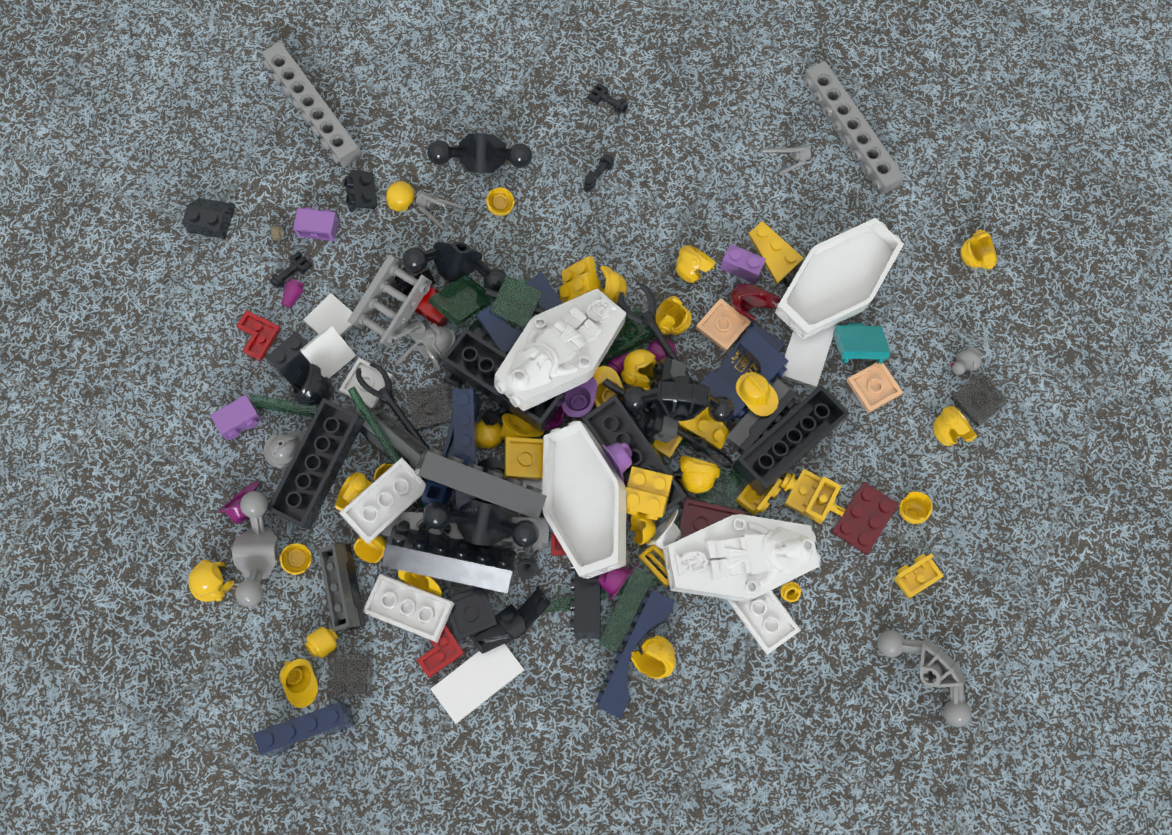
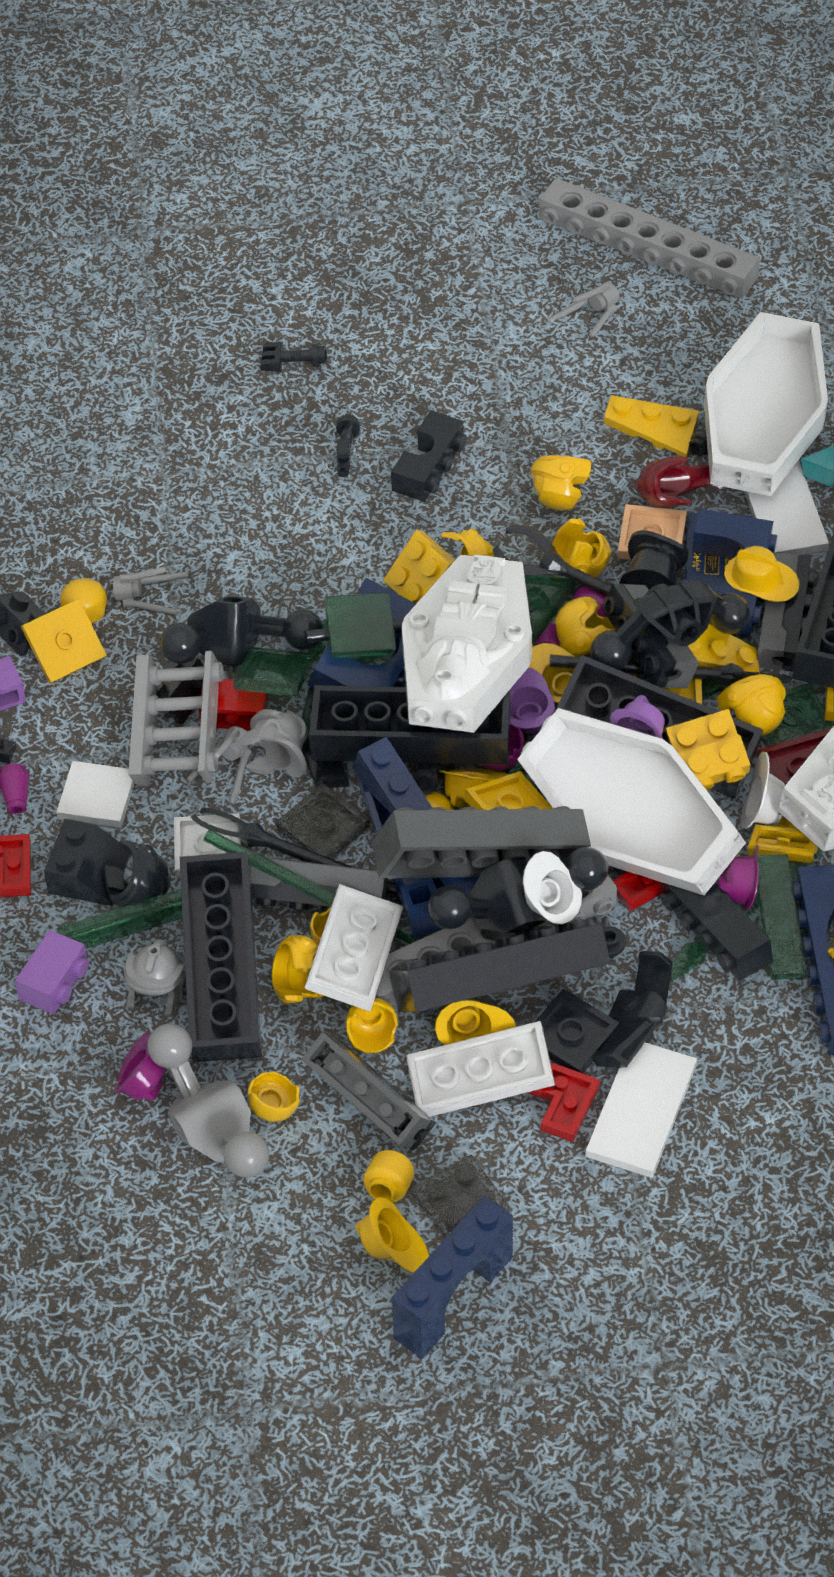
camera: 30 degrees left, 20 degrees down
(206, 581) = (165, 1190): yellow helmet -> none
(328, 352) = (128, 819): white tile -> none
(370, 217) = (63, 641): none -> yellow plate
(480, 153) = (168, 489): black piece -> none
(495, 537) = (550, 888): none -> white piece
(500, 201) = (235, 538): yellow hair -> none
(623, 215) = (420, 474): none -> black arch
(643, 527) = (733, 803): yellow hair -> none
(704, 350) = (653, 559): none -> black hat
(742, 263) = (623, 451): medium lavender brick -> none

